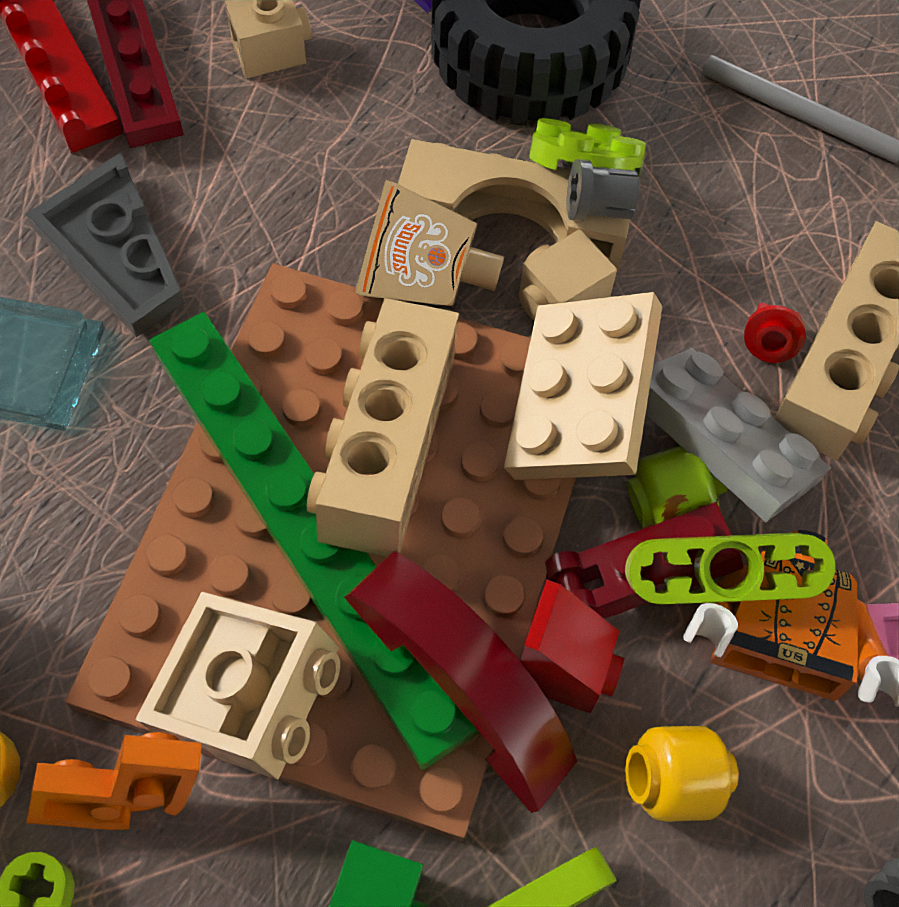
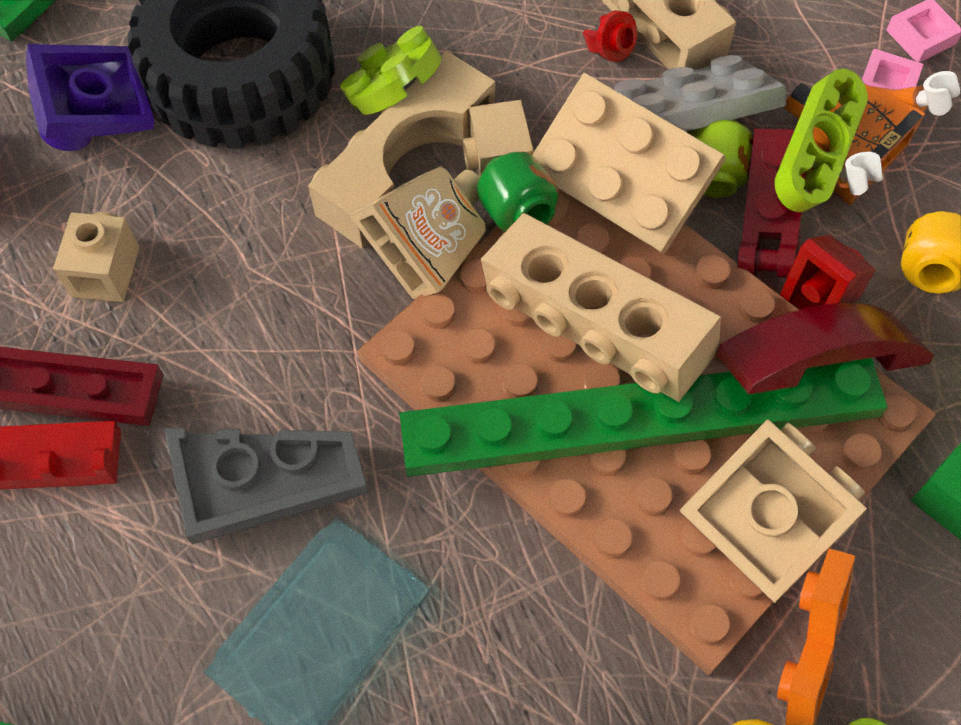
camera: 60 degrees left, 0 degrees up
(498, 309) = (516, 186): none -> green head
(601, 192) = (454, 73): dark grey bush -> none

